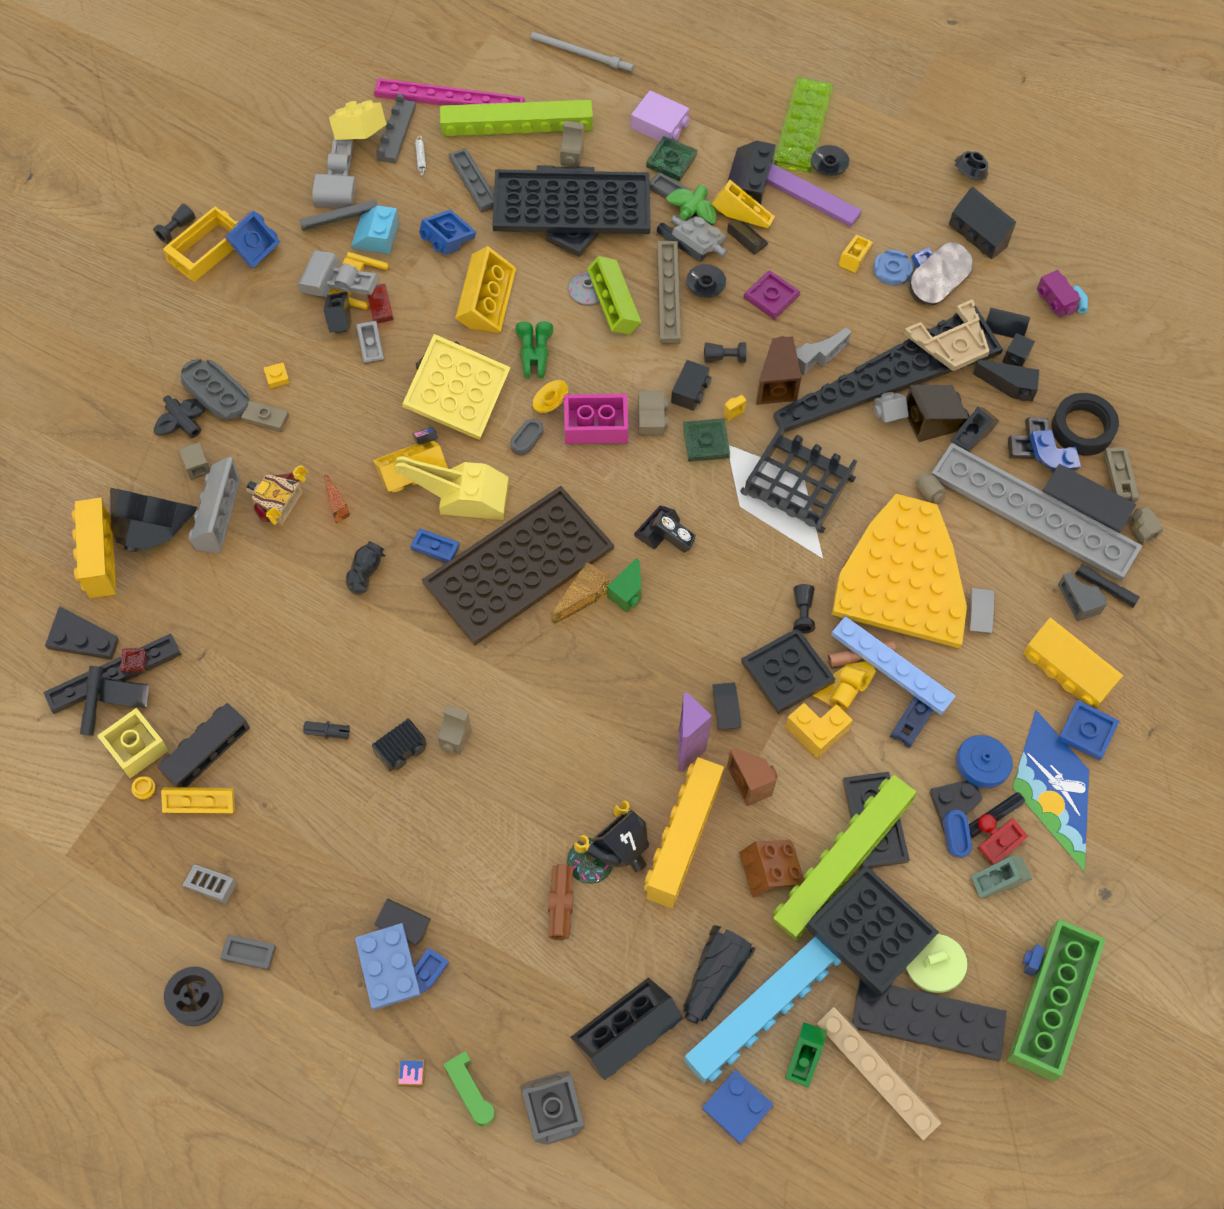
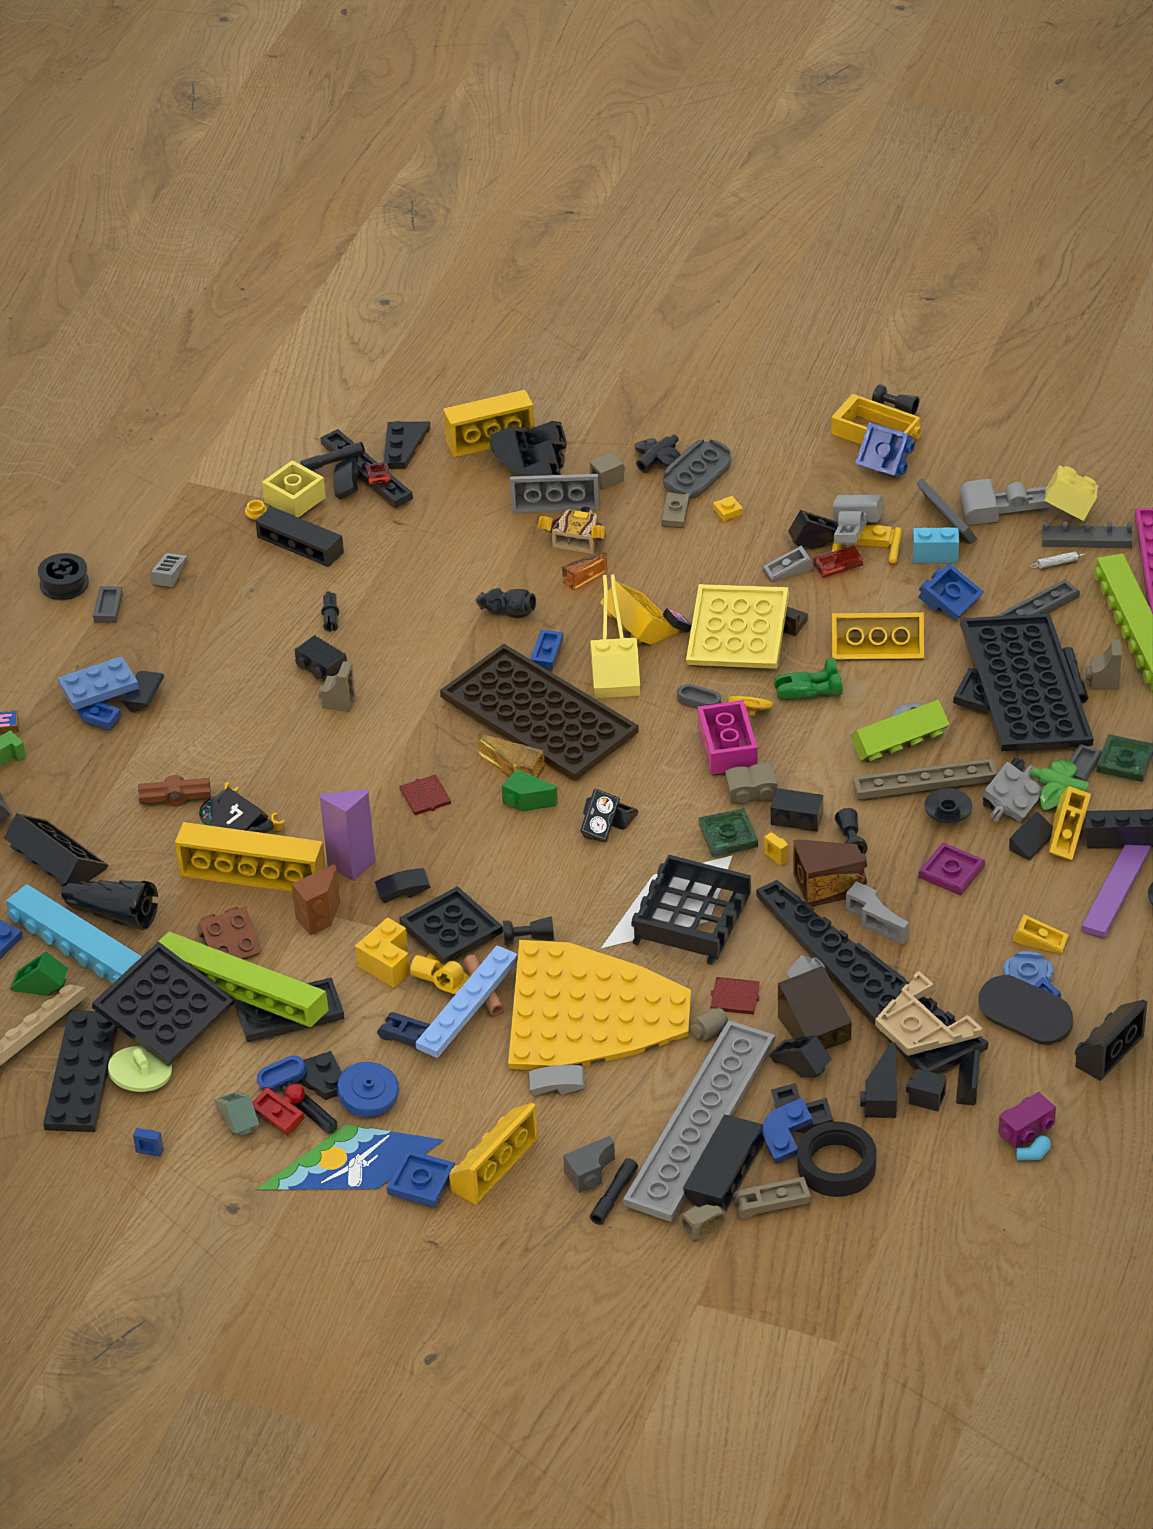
camera: 85 degrees right, 20 degrees down
(197, 800) = (246, 543): yellow plate -> none
(604, 675) = (425, 794): none -> clear red piece
(892, 467) = (735, 995): none -> clear red piece
(1056, 1000) = (105, 1155): bright green brick -> none

